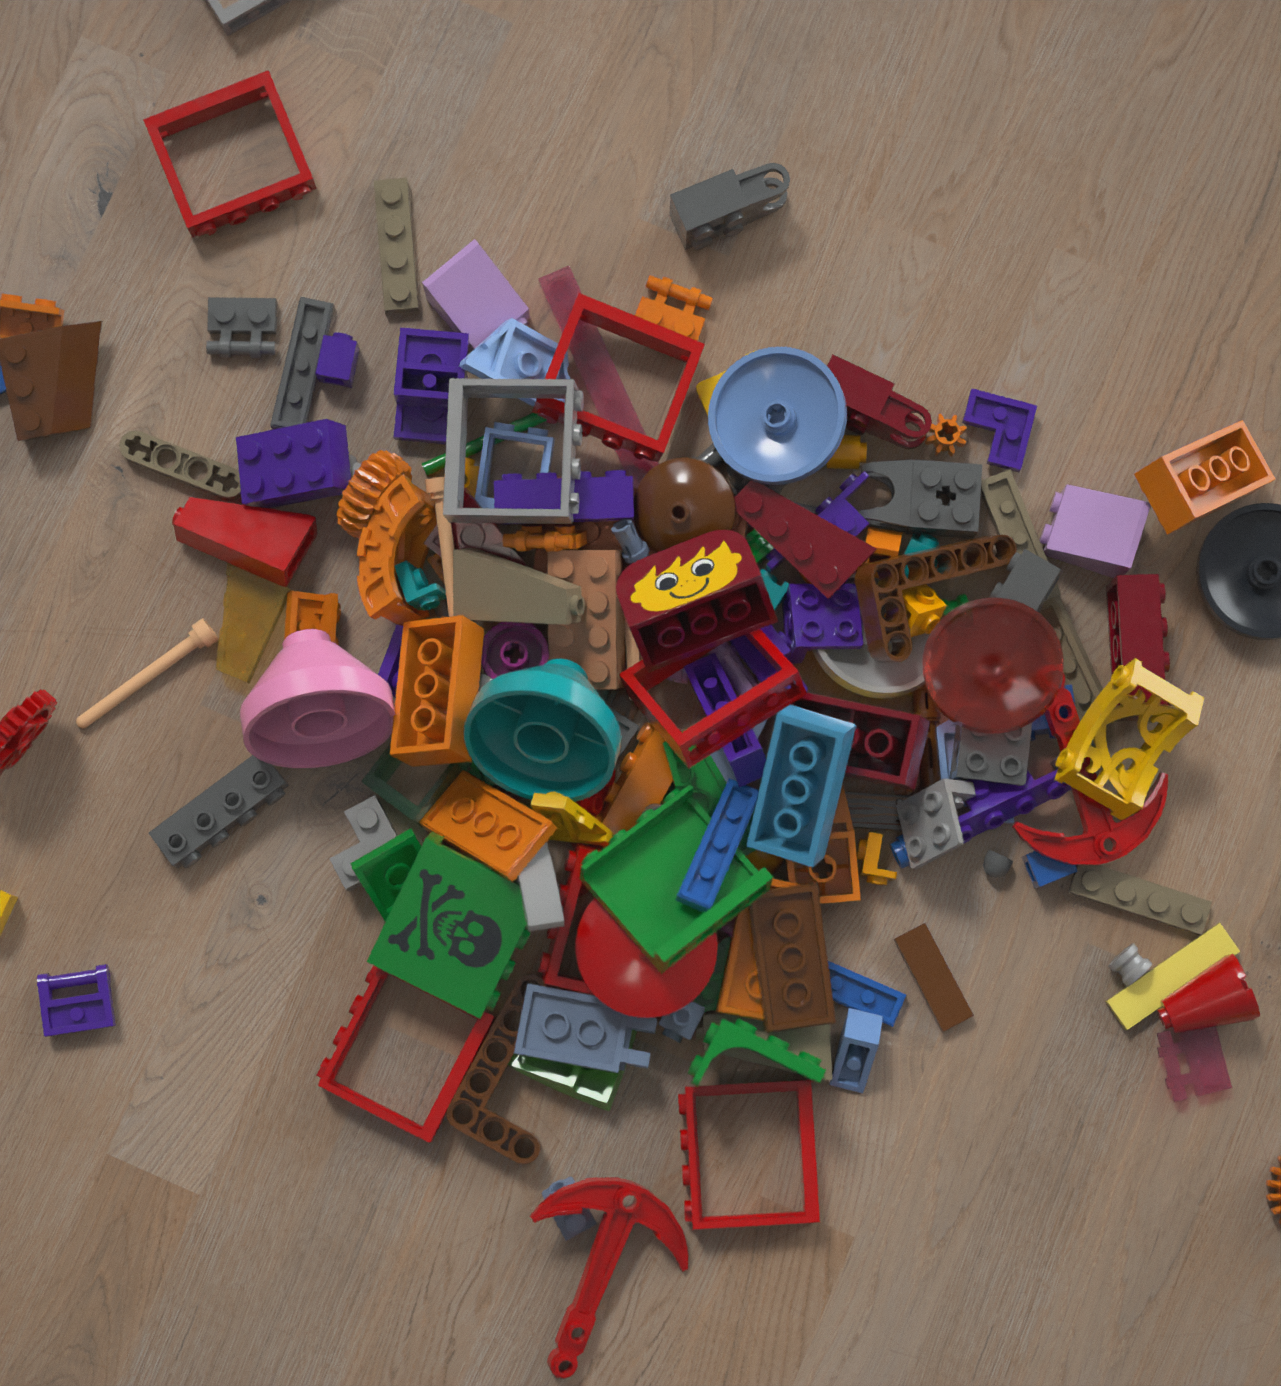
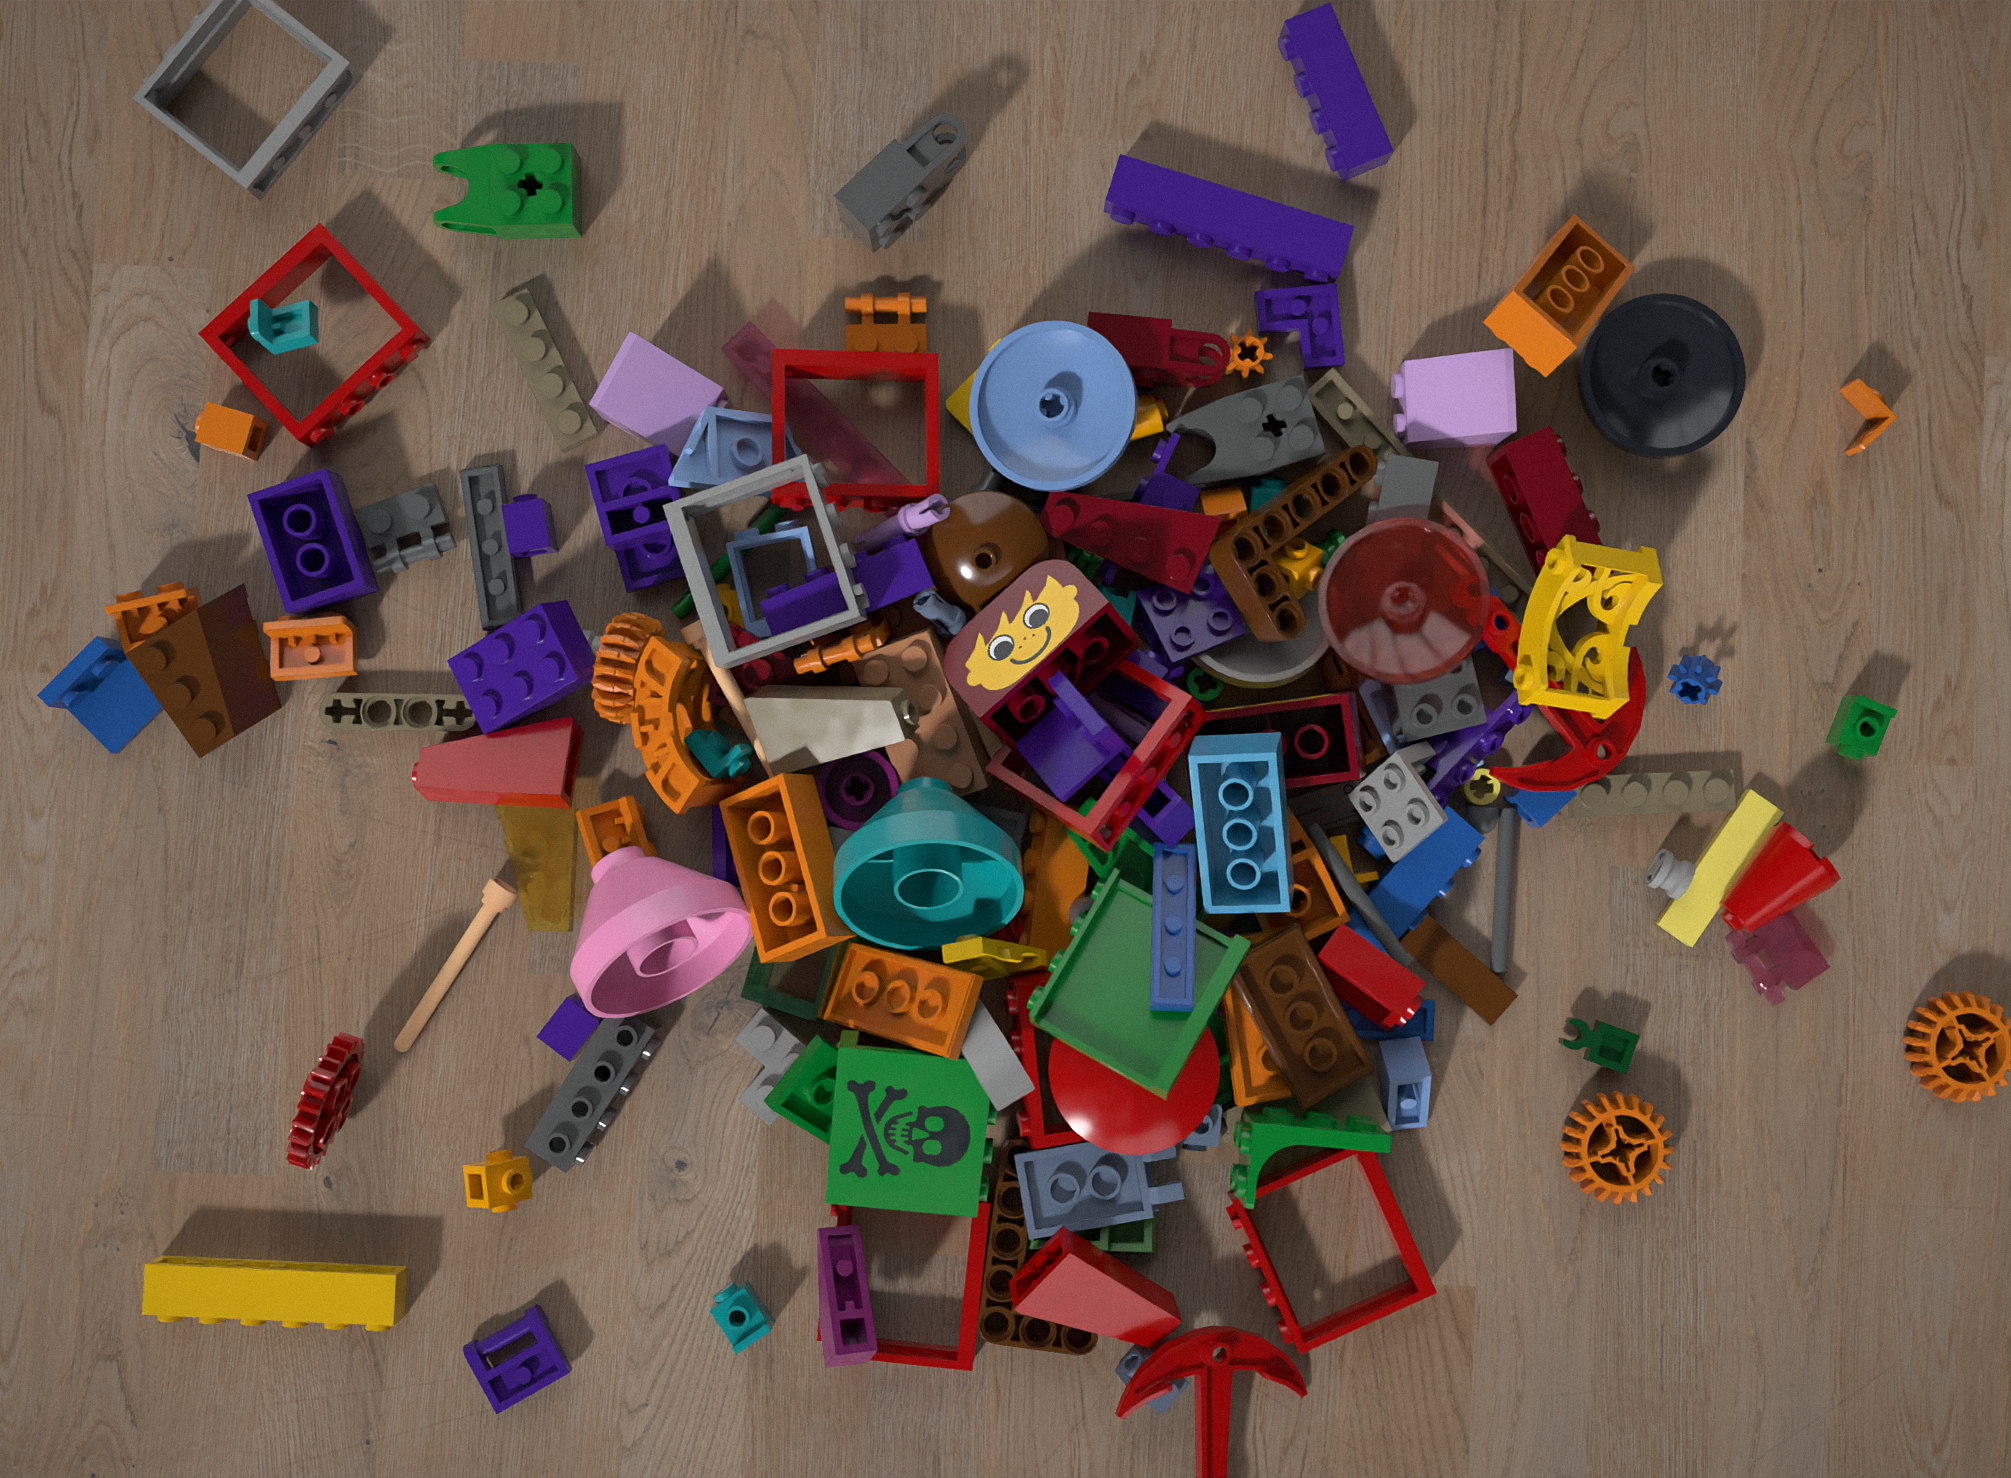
camera: 25 degrees left, 5 degrees up
(117, 854) = (498, 1181): none -> light orange brick
(135, 389) = (312, 647): none -> orange bracket
(137, 202) = (230, 431): none -> orange brick
(168, 310) = (313, 542): none -> dark purple brick
(212, 139) = (284, 326): none -> teal bracket
(220, 755) = (570, 1028): none -> dark purple brick
(274, 1042) = (742, 1298): none -> teal brick
(352, 1044) = (844, 1297): none -> magenta slope
(415, 97) = (501, 190): none -> green brick
(549, 1115) = (1093, 1292): none -> red slope
(635, 462) = (911, 520): none -> lavender pin
(693, 672) = (1069, 741): none -> dark purple bracket
(818, 686) = (1193, 688): none -> green bush
(857, 952) = (1370, 979): none -> red window
(873, 884) = (1357, 895): none -> dark grey bar
(918, 893) = (1418, 877): none -> blue brick
(970, 325) = (1228, 220): none -> dark purple brick
(993, 928) = (1502, 890): none -> dark grey bar
(1006, 851) = (1484, 798): none -> light yellow bush
(1007, 1182) = (1623, 1163): none -> orange gear
(1028, 1081) = (1605, 1044): none -> dark green plate
(1091, 259) = (1334, 92): none -> dark purple brick
(1206, 818) = (1695, 679): none -> blue gear

